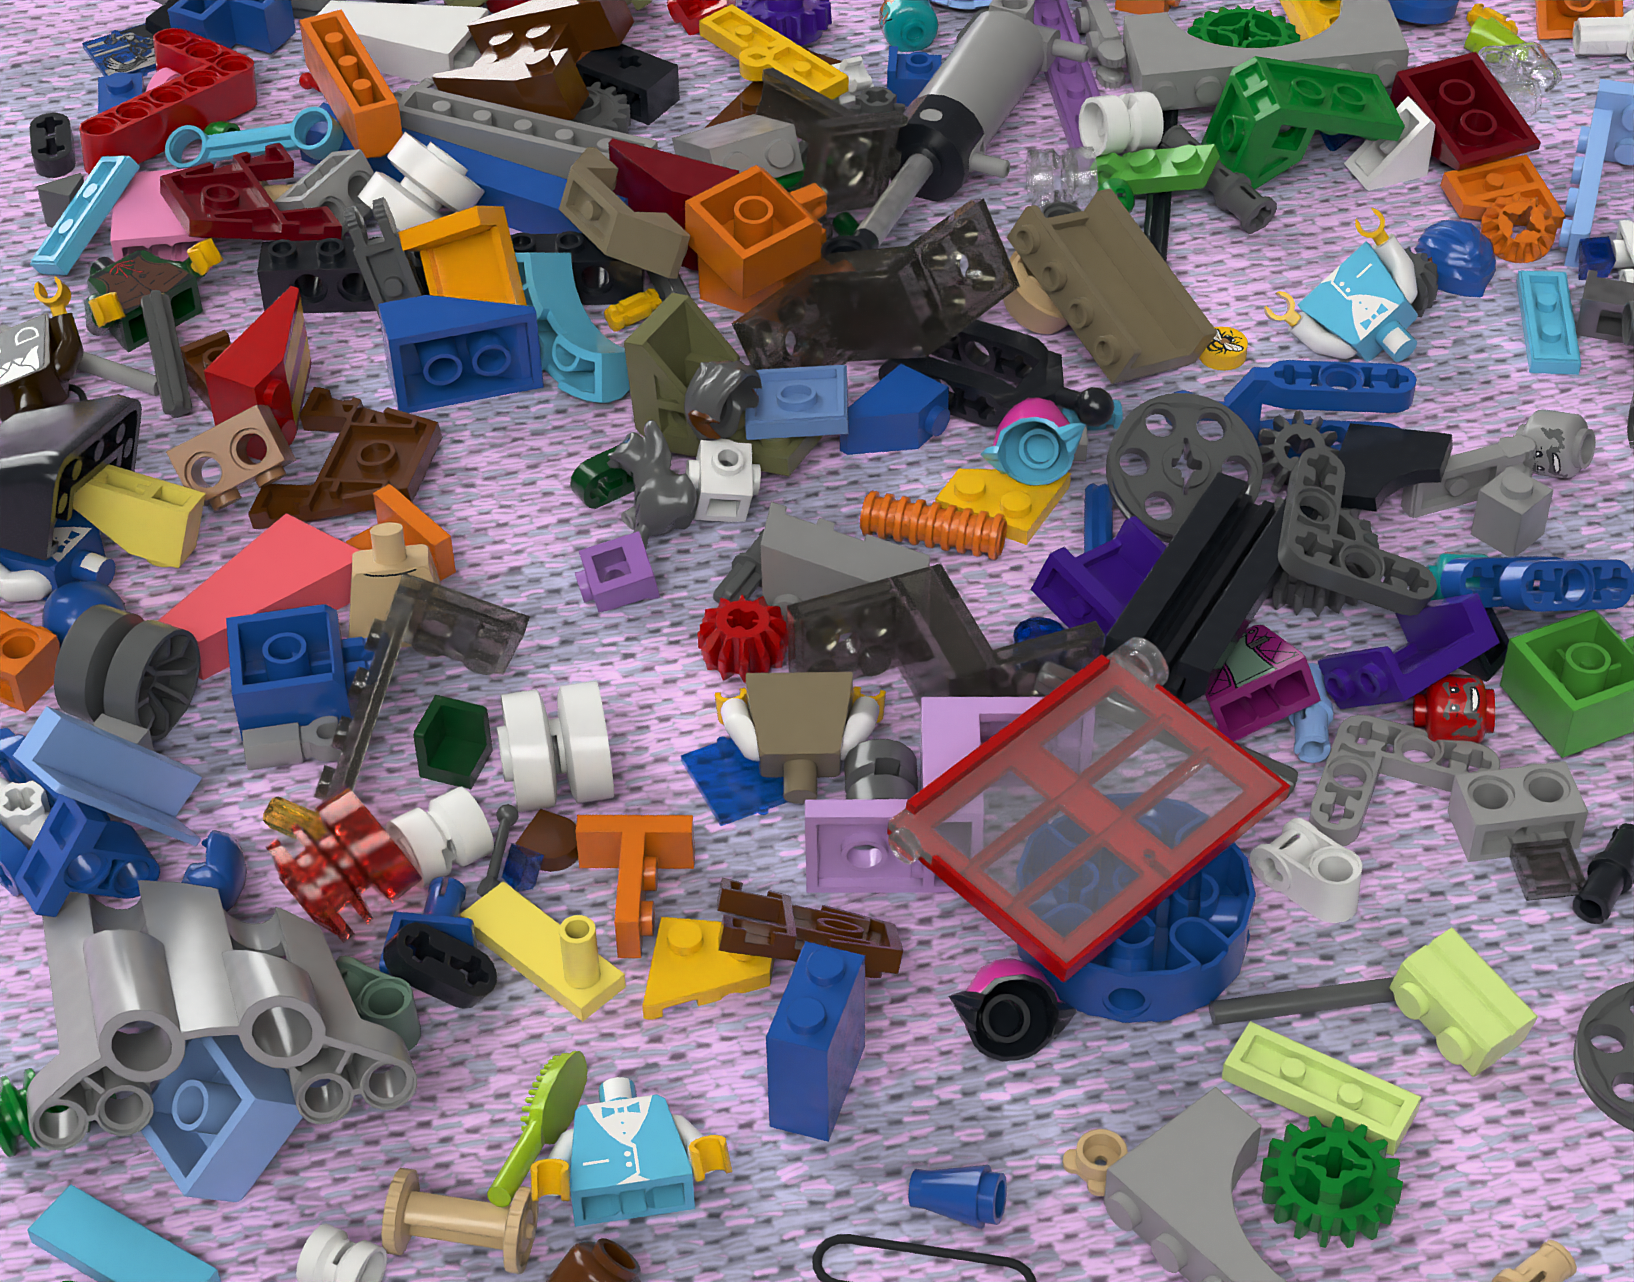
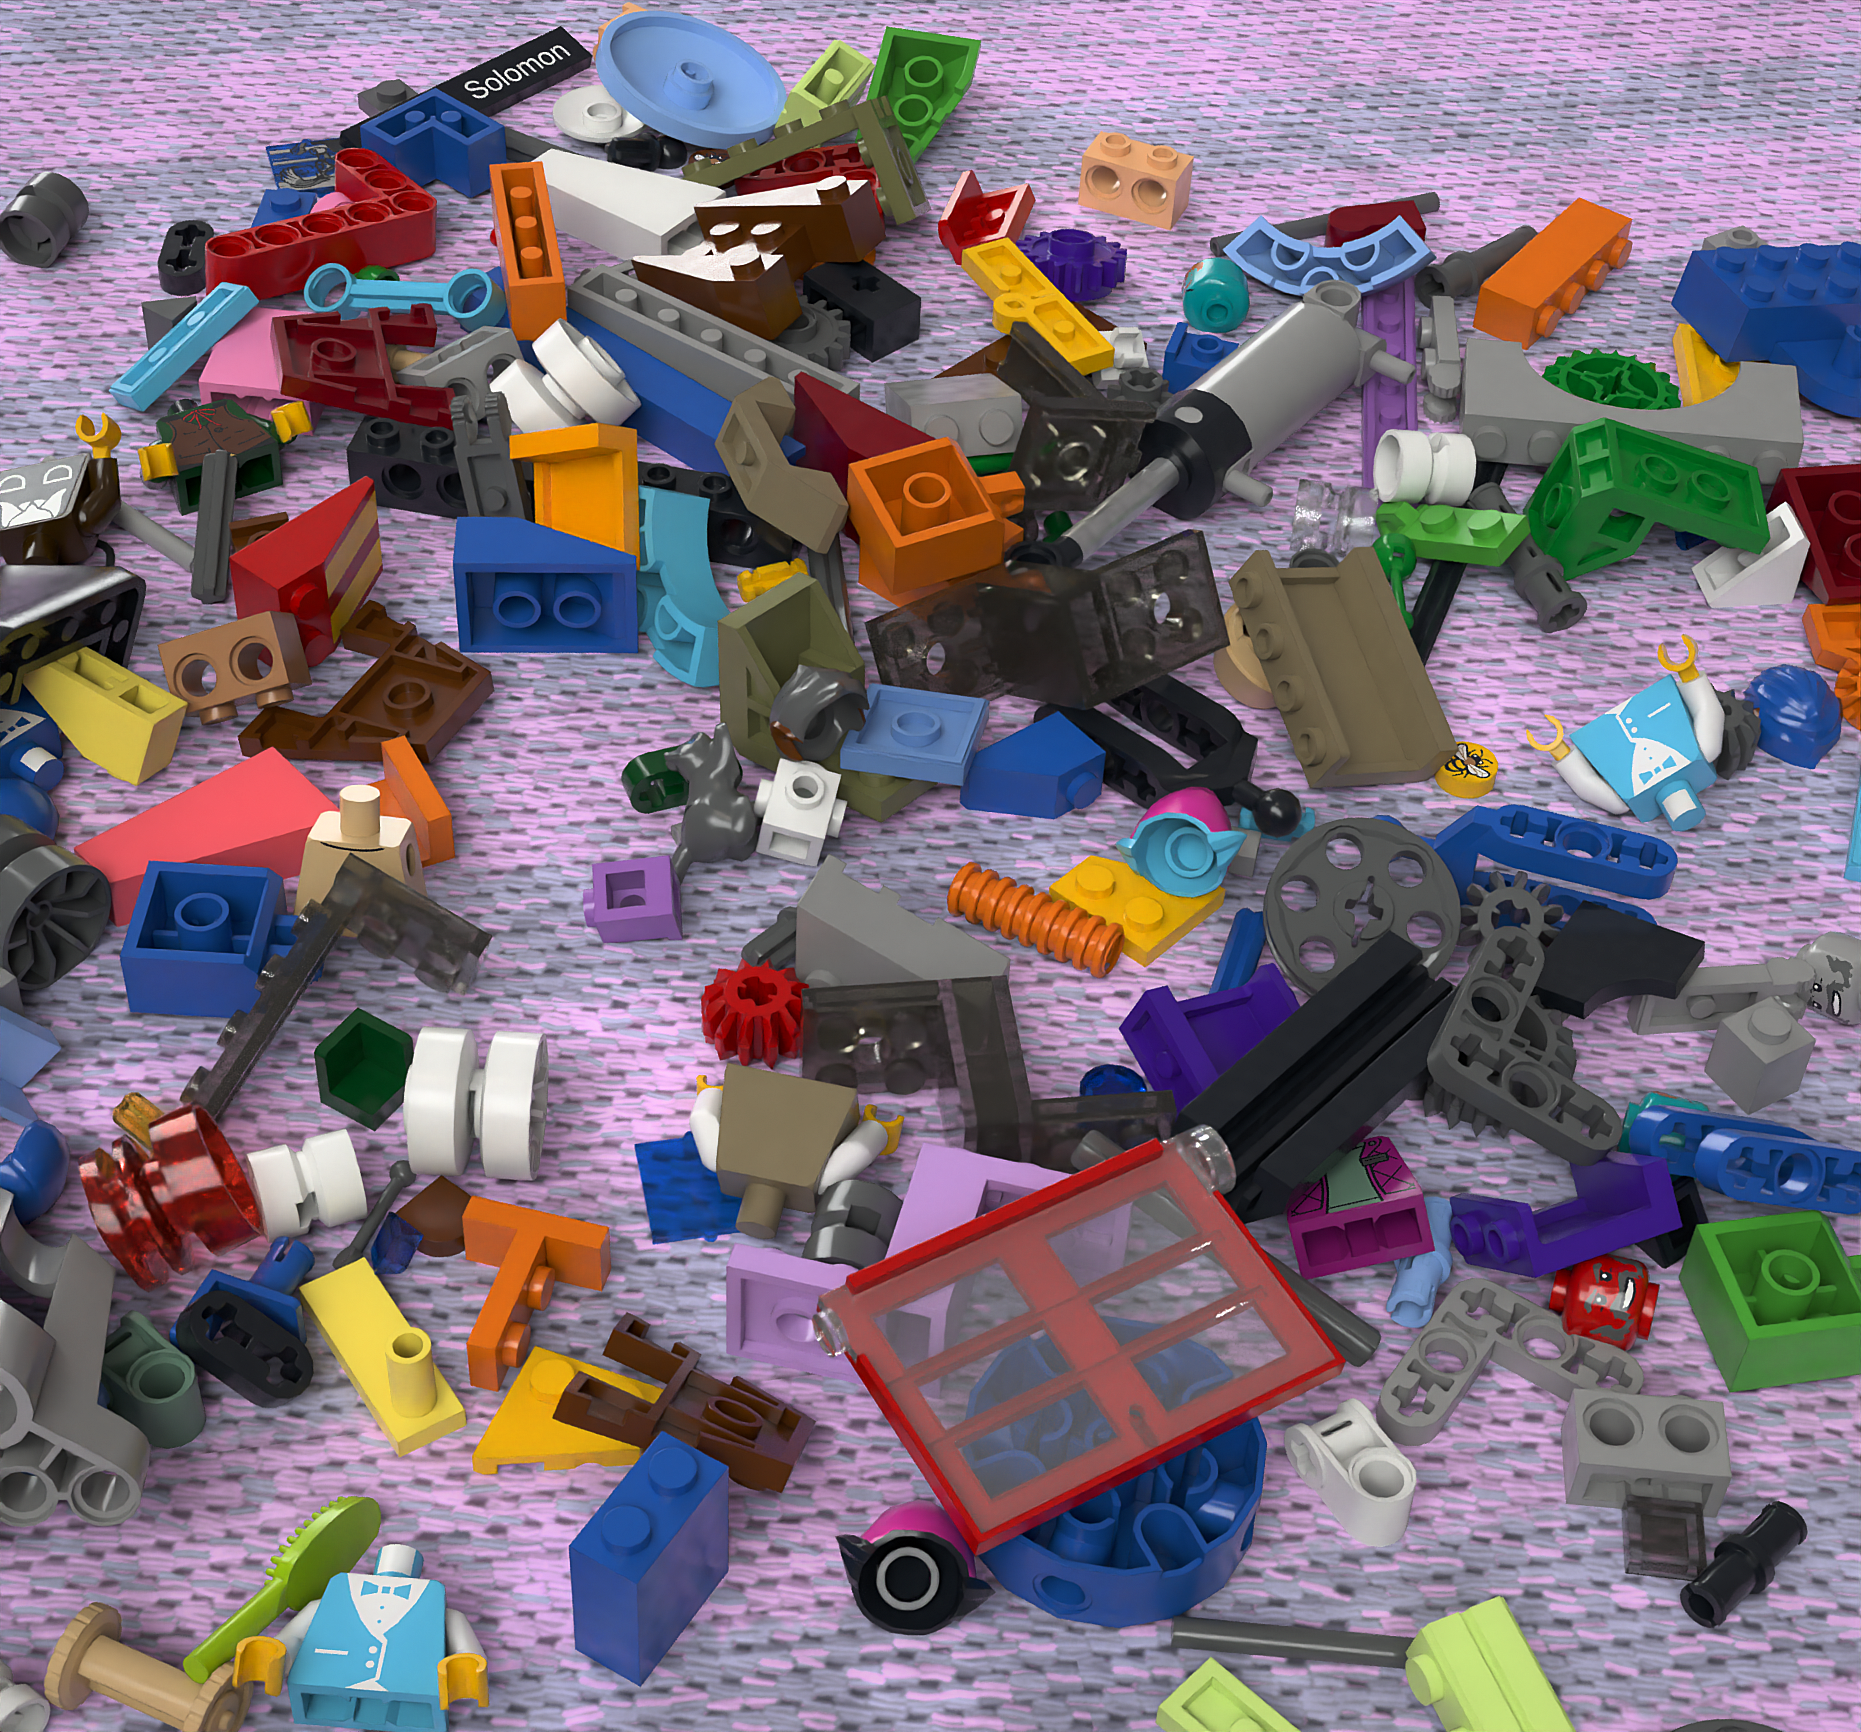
camera: 10 degrees right, 0 degrees up
(290, 743) = (175, 1027): light grey bar -> none

